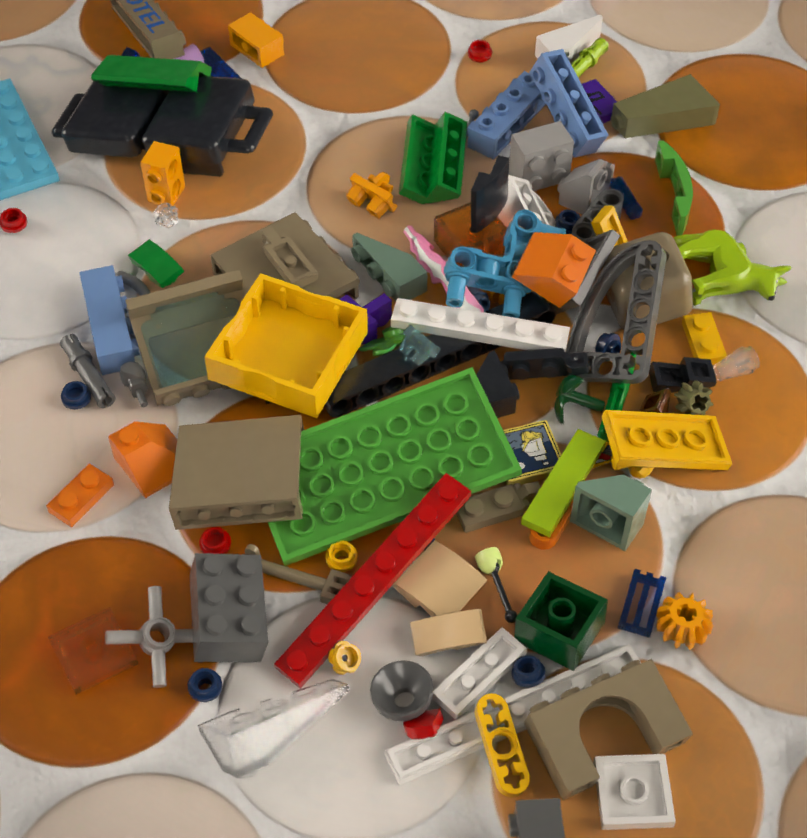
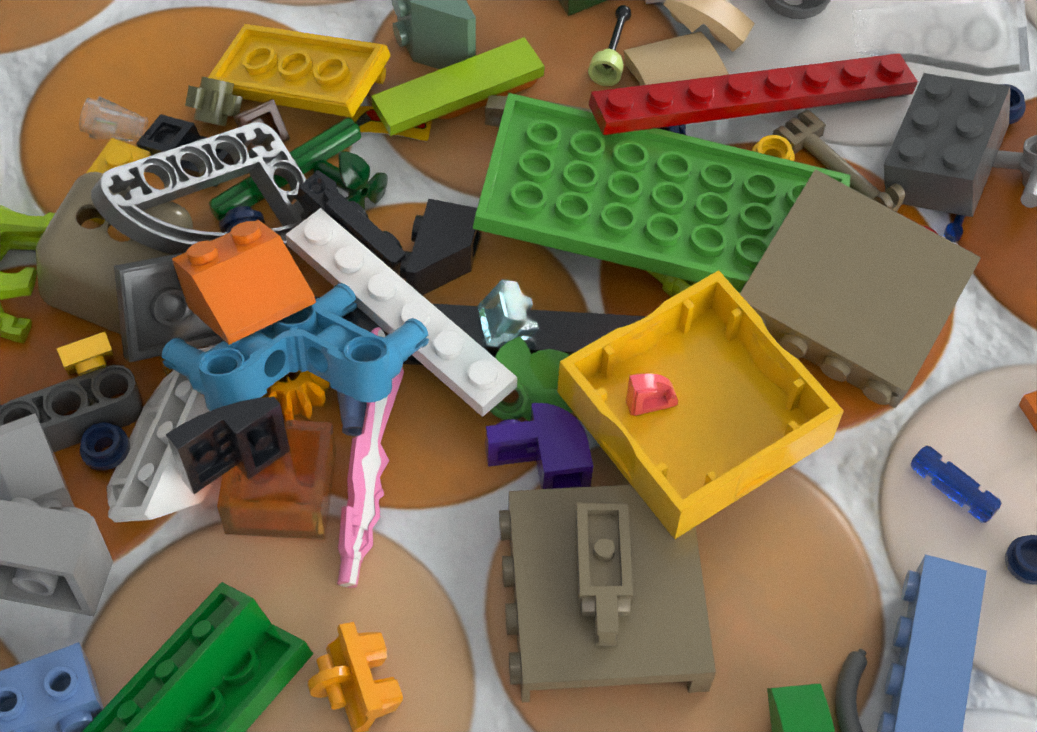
camera: 150 degrees left, 5 degrees up
(81, 361) = (1003, 610): dark grey pin -> none
(131, 413) = (955, 484): none -> clear blue axle
(134, 377) = (934, 529): dark grey piece -> none
(145, 454) = (959, 406): orange slope -> none
(179, 328) = (823, 535): panel -> none
(316, 336) = (649, 393): none -> coral tile
(353, 658) = (834, 49): yellow plate -> none
(392, 268) = (431, 505): sand green slope -> none
(534, 450) = (453, 159): tile -> none

